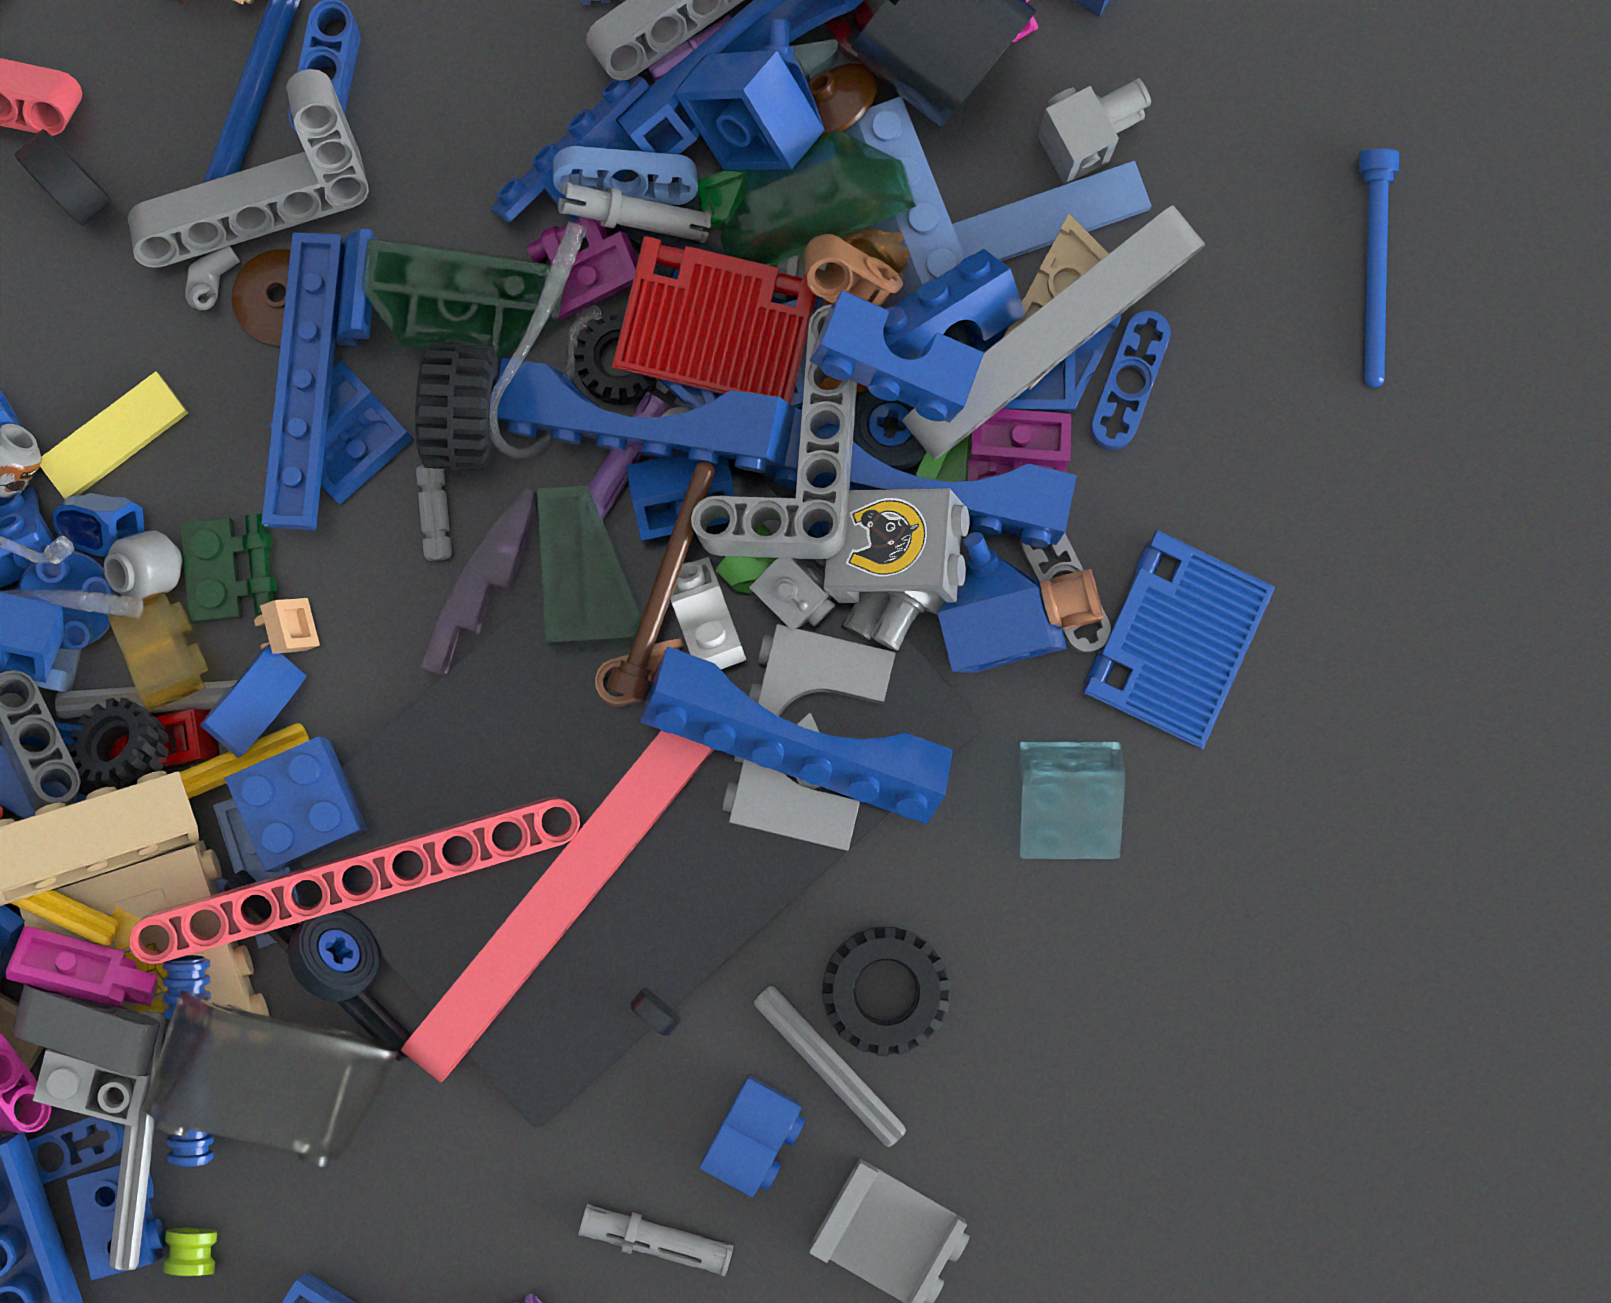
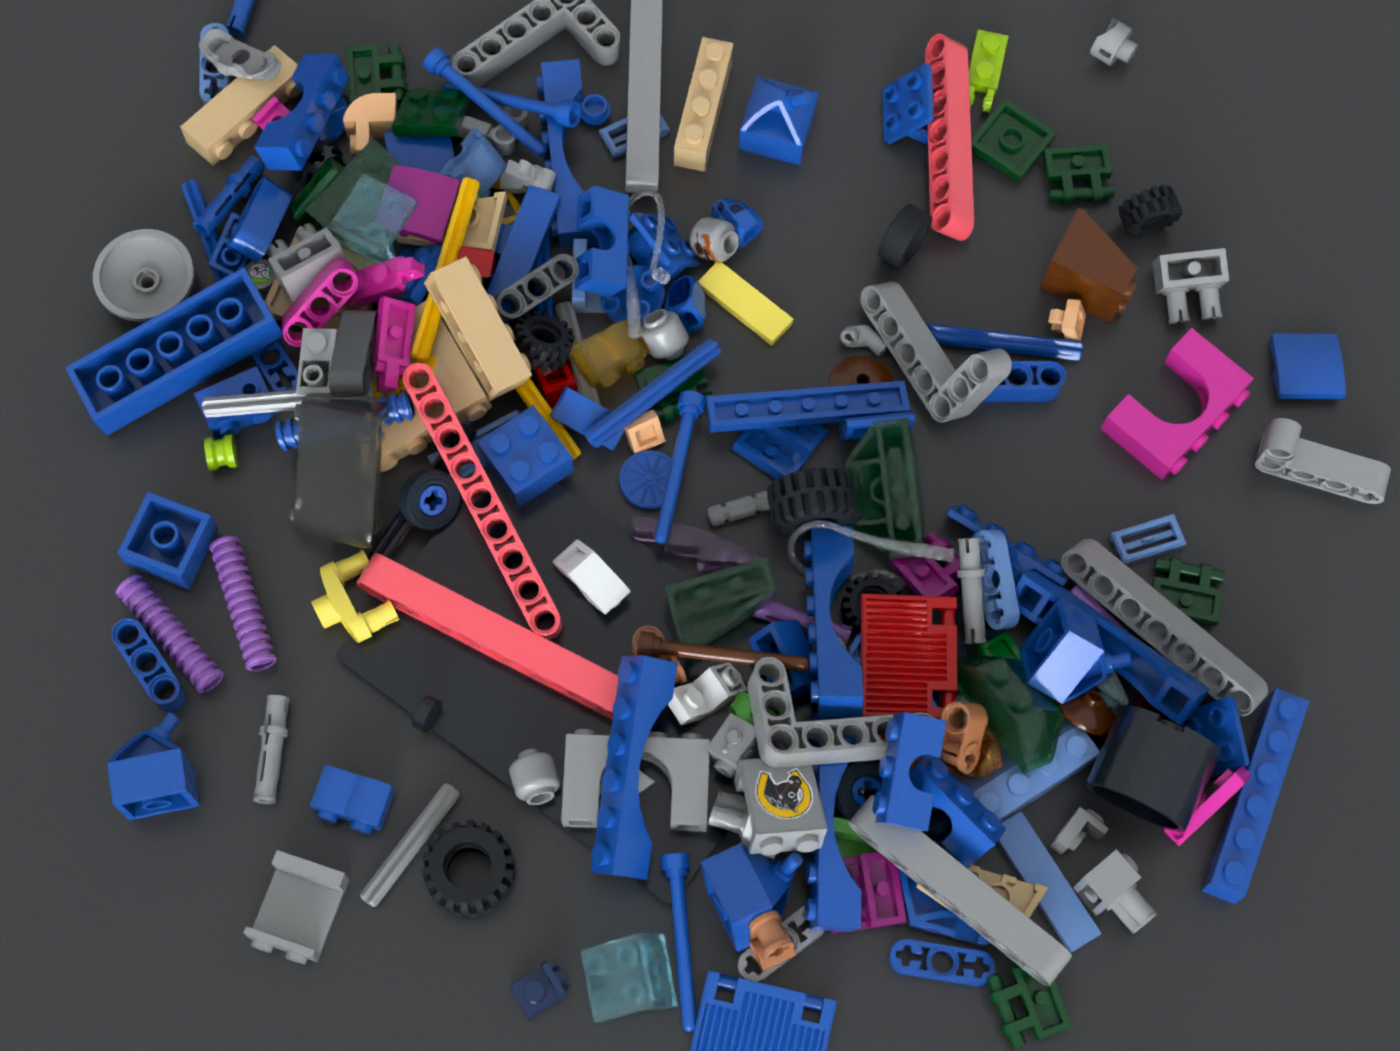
camera: 75 degrees right, 15 degrees down
(236, 599) = (652, 393): none -> blue axle
(270, 550) = (690, 406): none -> blue piece
(361, 632) = (645, 478): none -> blue wheel
(430, 1251) = (242, 603): none -> medium lavender piece
(466, 1115) = (337, 607): none -> light yellow connector
(499, 743) = (591, 576): none -> white slope
(776, 877) = (534, 777): none -> light grey head
(941, 707) = (676, 868): none -> blue piece
(993, 165) = (1071, 833): none -> light grey bracket
(1062, 922) = (540, 989): none -> dark blue bracket
(1223, 263) = (1041, 1004): none -> dark green plate

